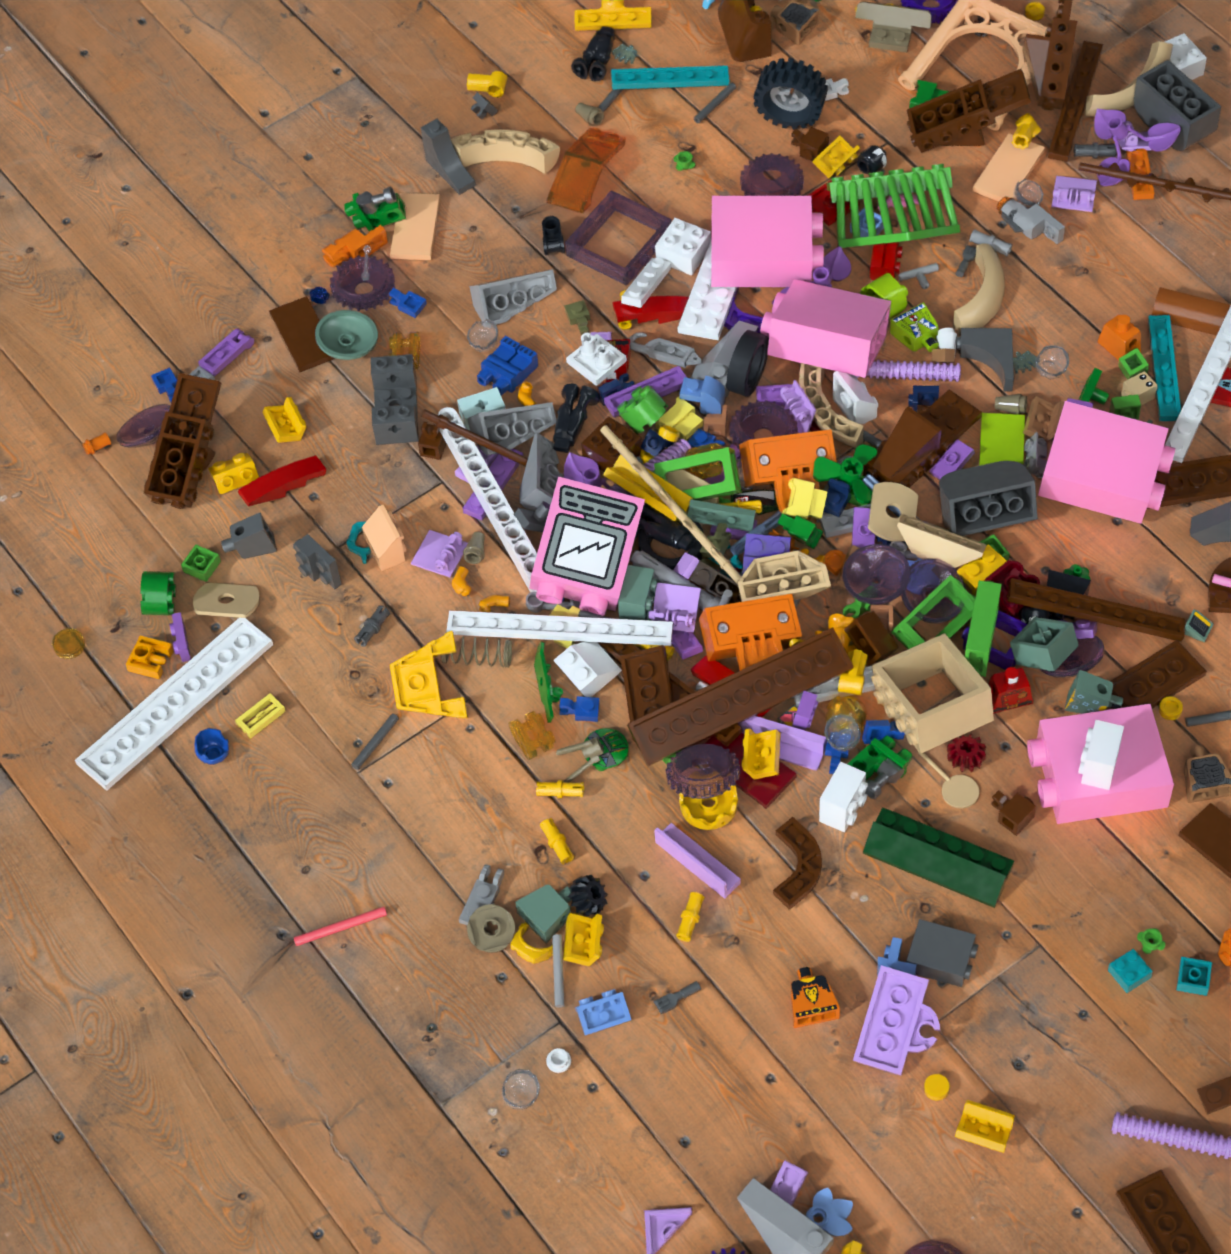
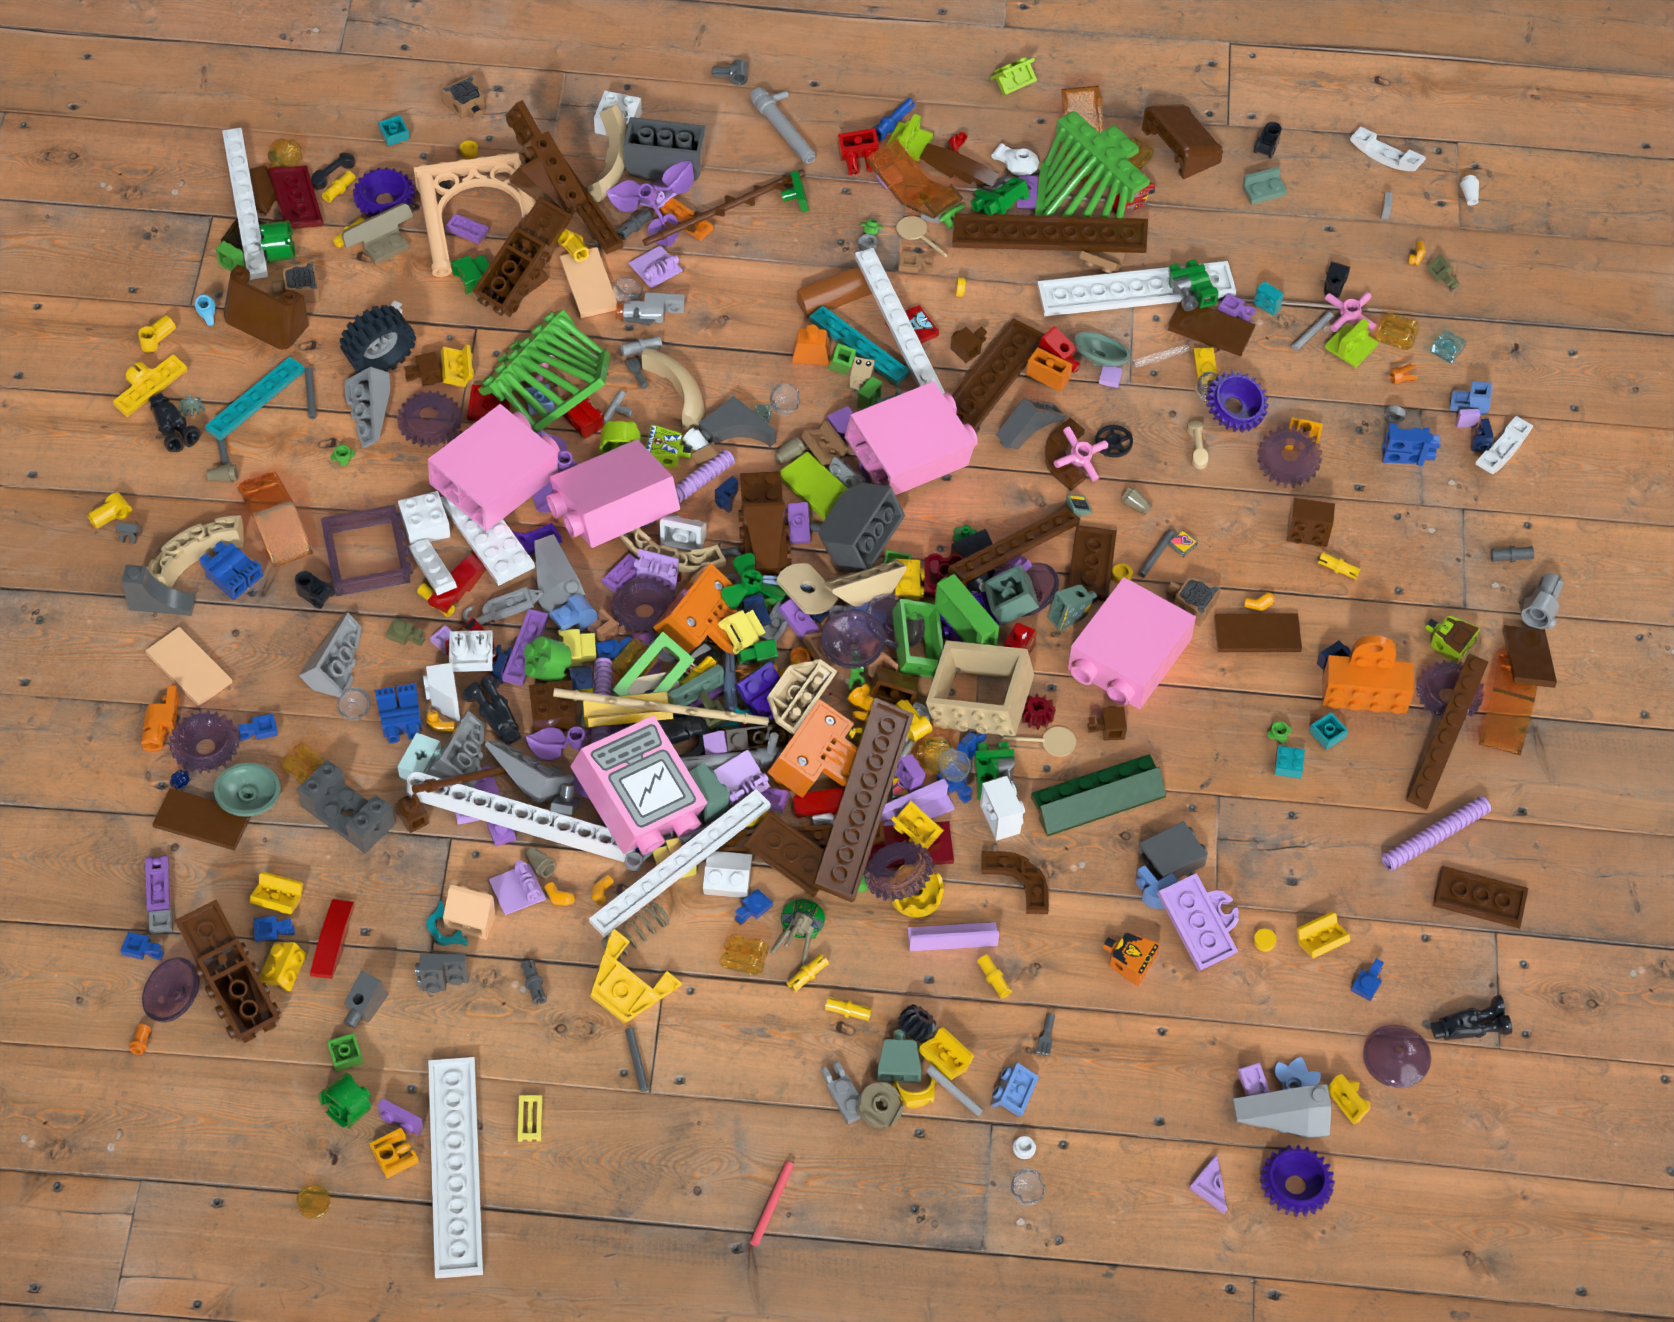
camera: 55 degrees left, 0 degrees up
(211, 746) = (527, 1170): blue hair -> none
(244, 604) = (388, 1076): tan piece -> none
(255, 439) = (269, 927): none -> blue plate
(365, 275) = (207, 732): clear hinge -> none
(376, 209) = (149, 677): green hips -> none
(514, 175) = (230, 569): none -> blue hips
(547, 693) = (703, 909): green piece -> none
(552, 372) = (441, 690): none -> white slope
(669, 433) = (586, 661): yellow tile -> none
(747, 363) = (586, 564): black tyre -> none
(749, 131) = (368, 398): none -> light grey wedge
(872, 159) = (486, 348): black head -> none
(963, 66) = (467, 228): none -> medium lavender plate
(979, 1200) = (1368, 983): none -> blue plate
(1090, 390) = (829, 399): green tile -> none
(1100, 754) = (1143, 632): white brick -> none

